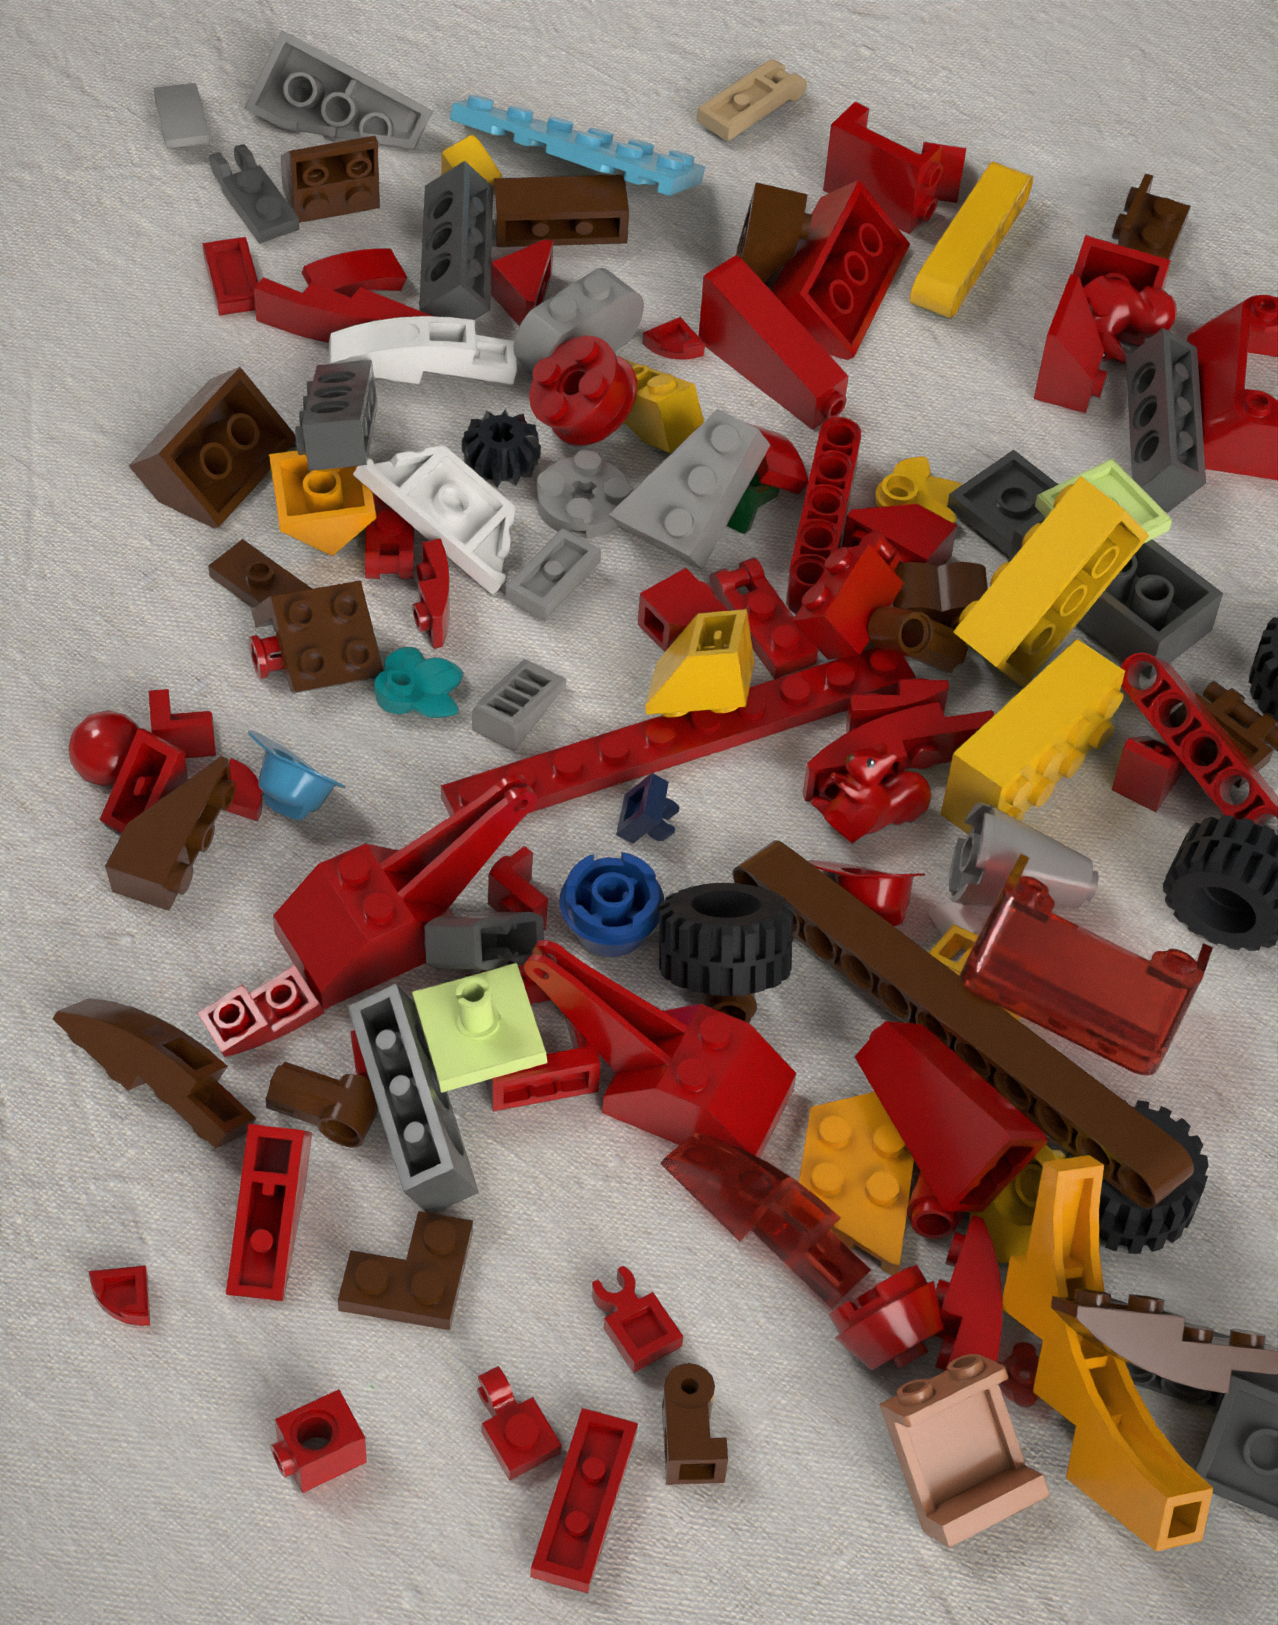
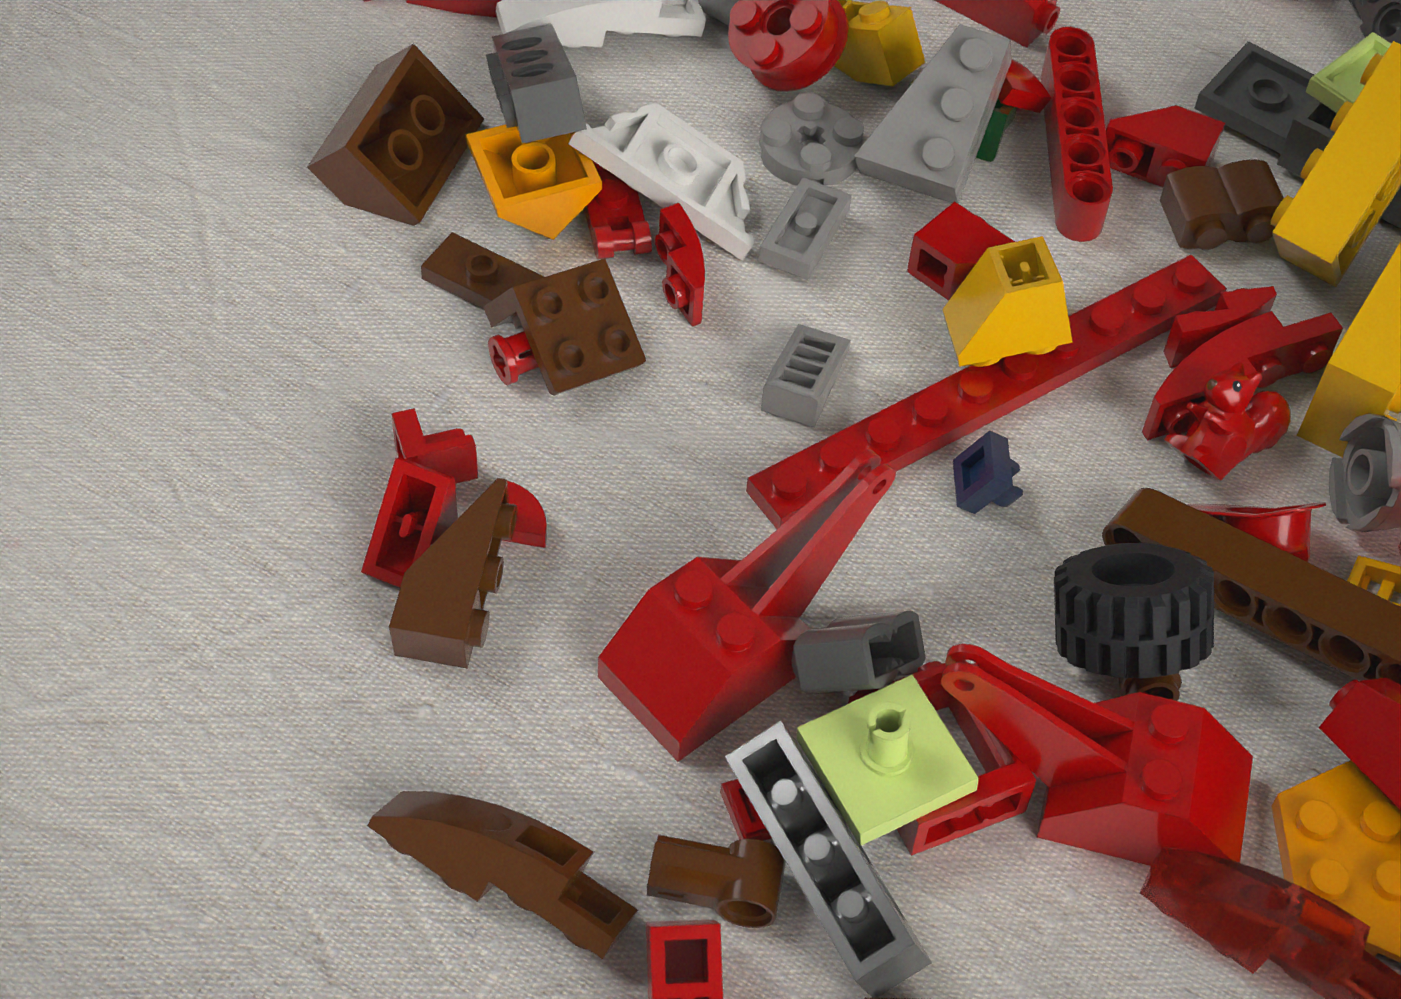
camera: 10 degrees left, 0 degrees up
(101, 745) = (349, 485): red hair -> none
(258, 1017) = (611, 779): red slope -> none
(289, 782) = (579, 500): dark azure piece -> none
(417, 684) = (688, 367): teal plate -> none
(501, 447) = (713, 99): black gear -> none
(510, 886) = (866, 589): red bracket -> none
(611, 903) = (989, 587): blue cone -> none
(773, 634) = (1081, 272): red plate -> none
(847, 594) = (1141, 212): red brick -> none
(914, 485) = (1151, 90): yellow plate -> none
(916, 637) = (1222, 245): reddish brown piece -> none
(953, 913) = (1348, 545): white sticker -> none

